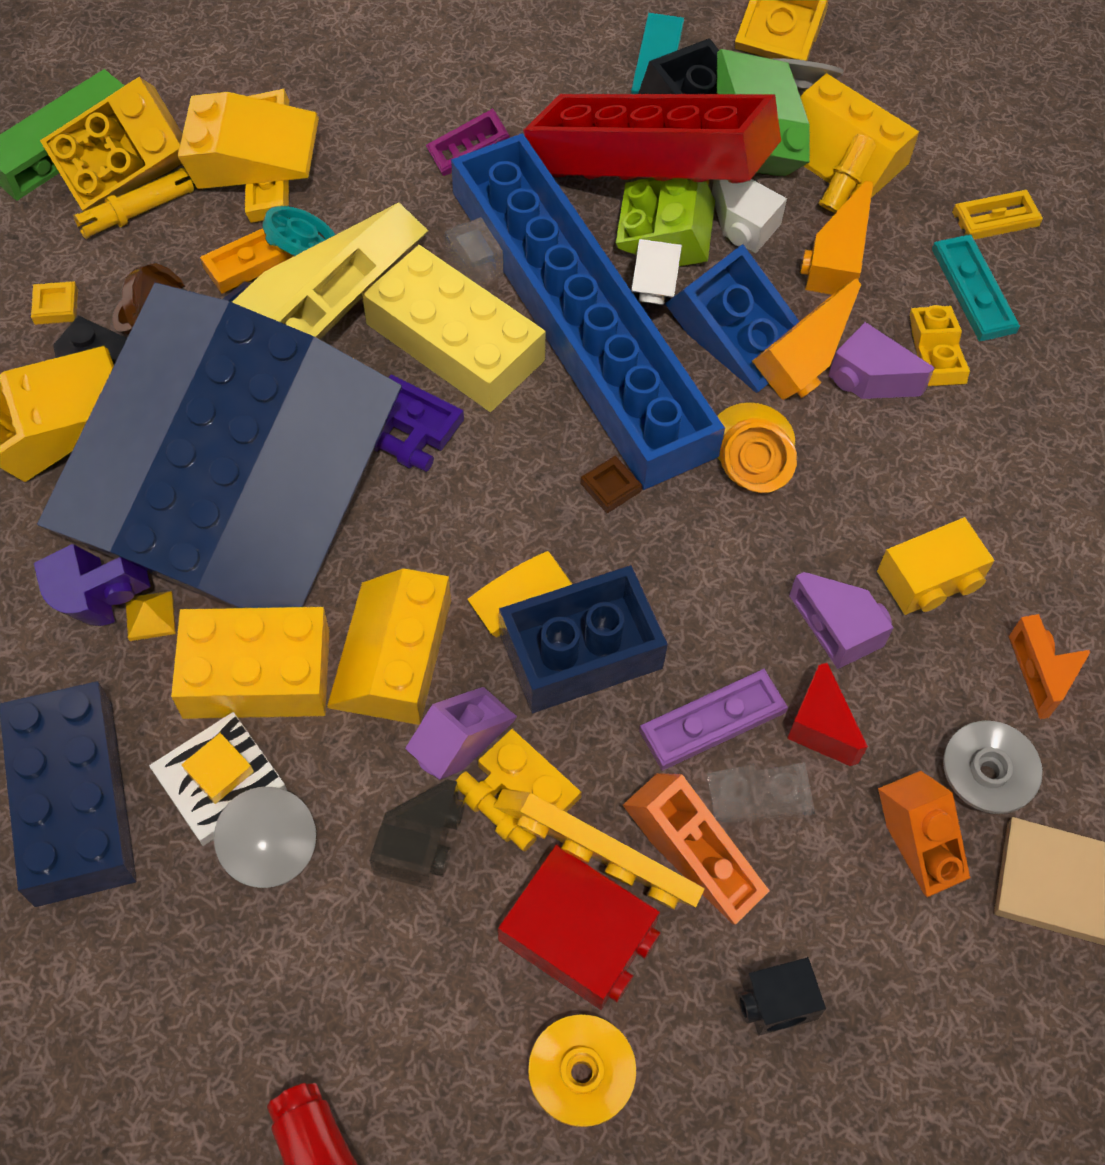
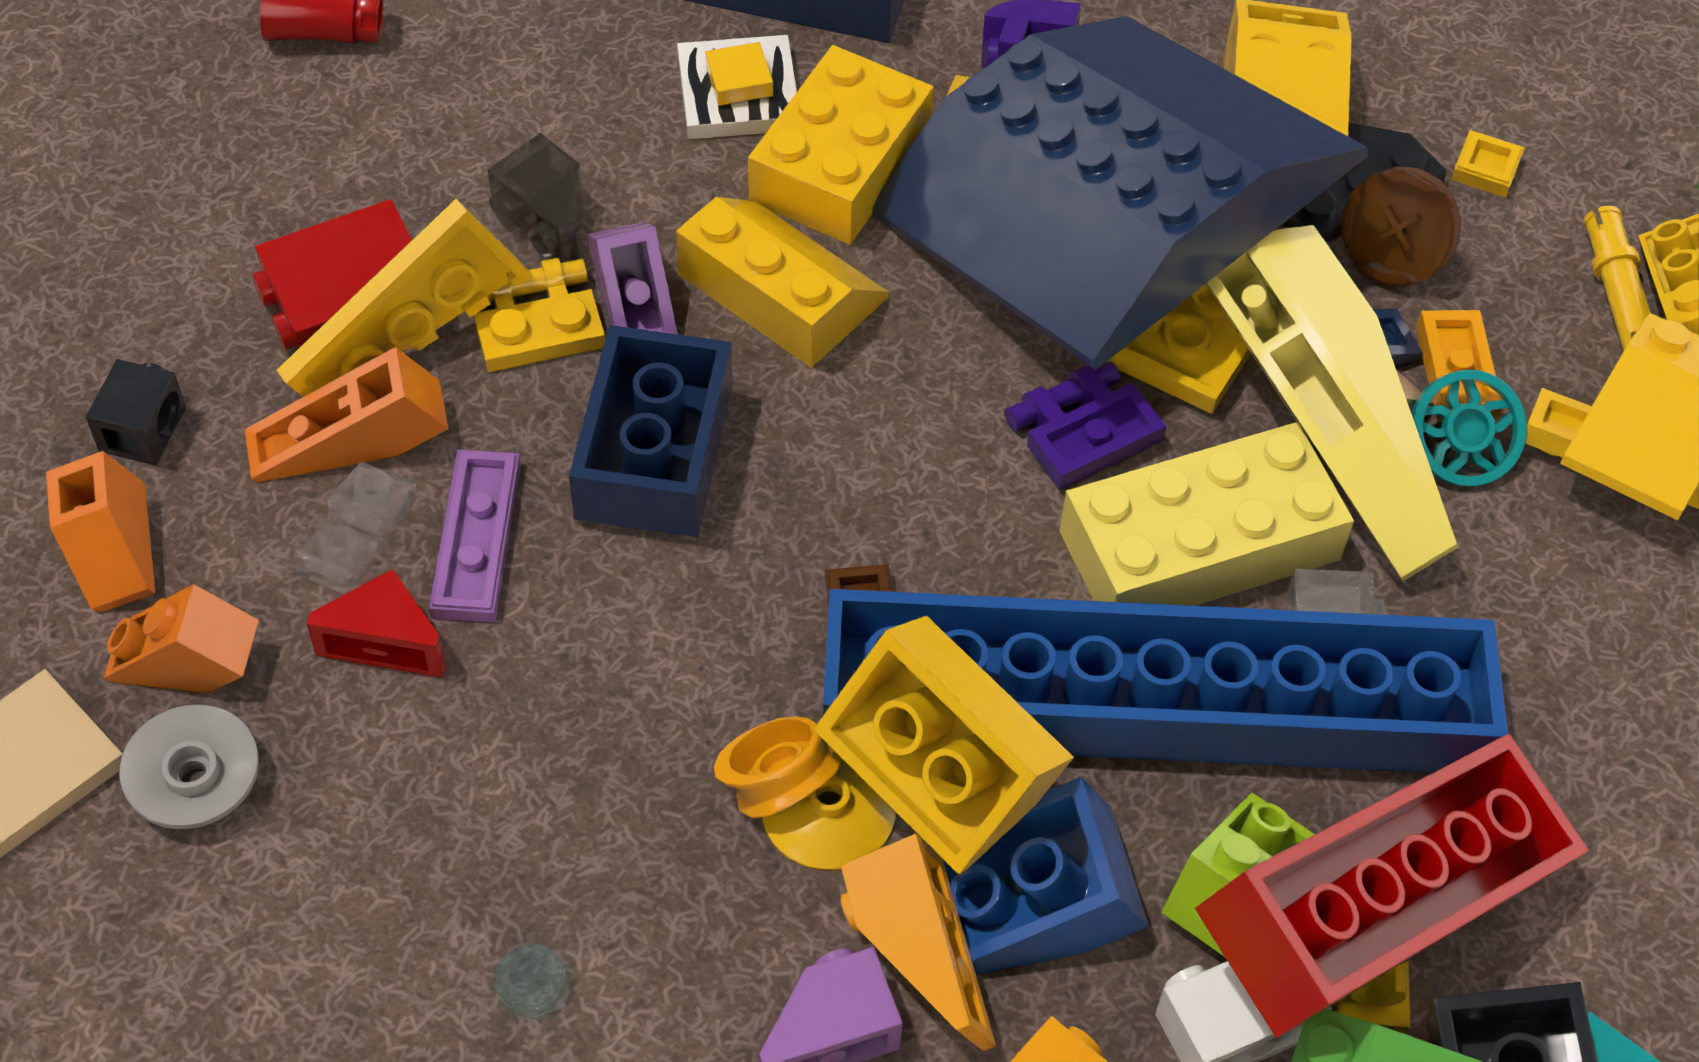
camera: 120 degrees right, 5 degrees down
(265, 837) = (640, 88): light grey dish -> none
(477, 128) = (1567, 765): magenta slope -> none
(522, 582) = (766, 424): yellow slope -> none
(587, 1042) = (214, 202): yellow dish -> none
(656, 271) = (1151, 783): white brick -> none
(715, 348) = (941, 742): none -> yellow slope
(841, 617) = (491, 725): medium lavender slope -> none
(887, 940) = (102, 529): none -> orange slope
(935, 567) = (471, 870): yellow brick -> none
(958, 508) = (531, 981): none -> clear light blue tile
(1045, 674) = (245, 909): orange slope -> none

